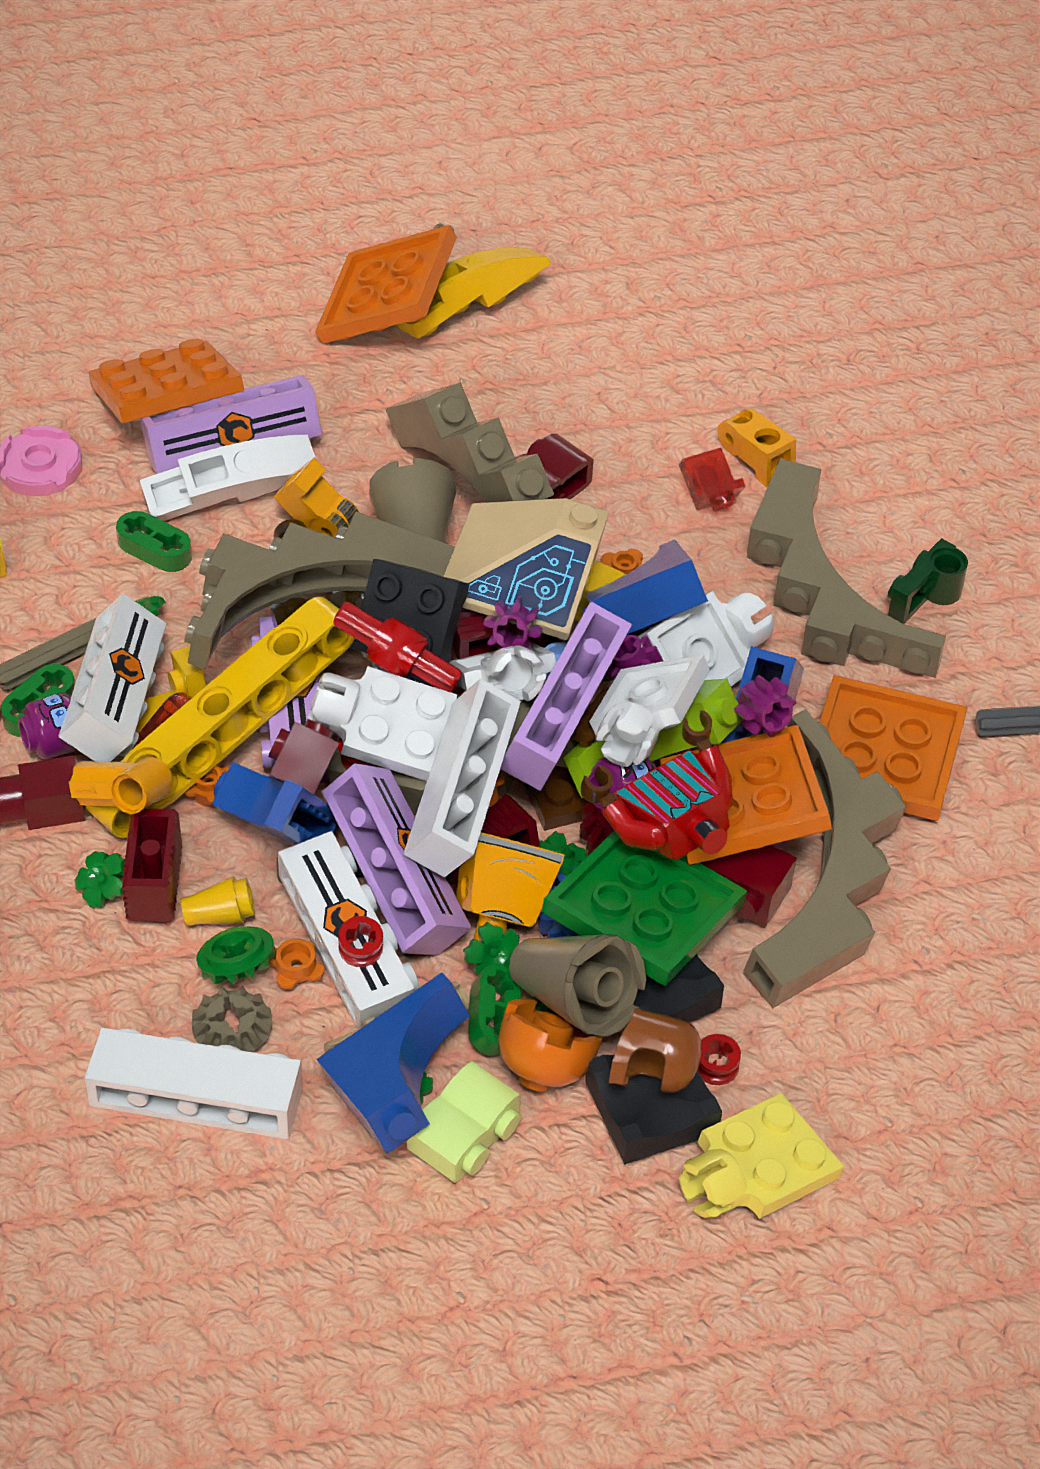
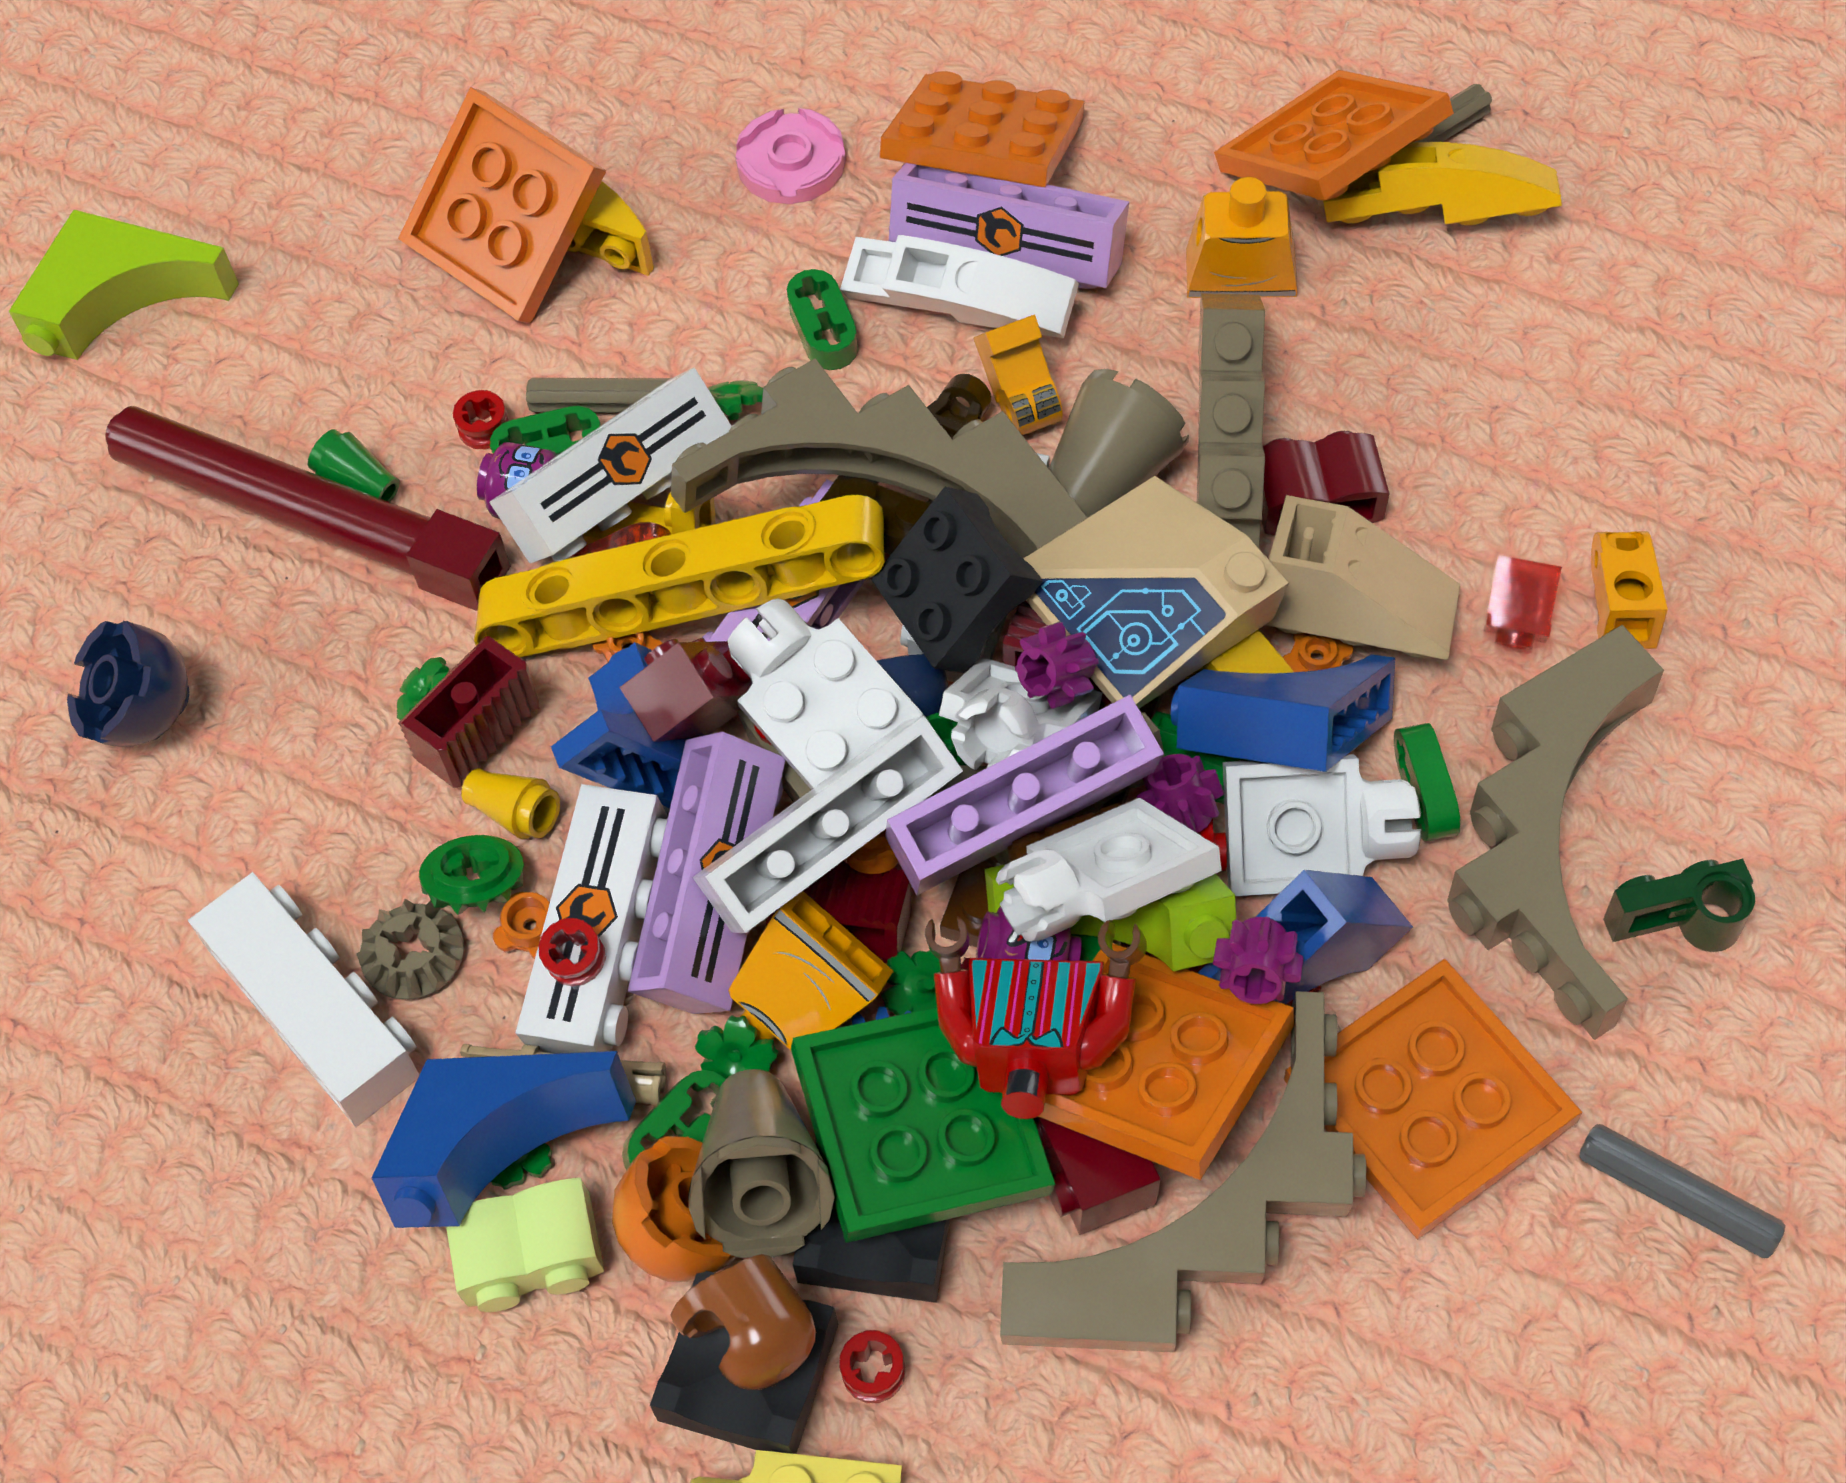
camera: 45 degrees right, 10 degrees up
(121, 784) = (492, 602): light orange piece -> none
(385, 369) = (1242, 243): none -> light orange torso
(397, 647) = (892, 615): red axle -> none
(635, 511) = (1359, 583): none -> tan slope
(729, 581) = (1424, 767): none -> green beam

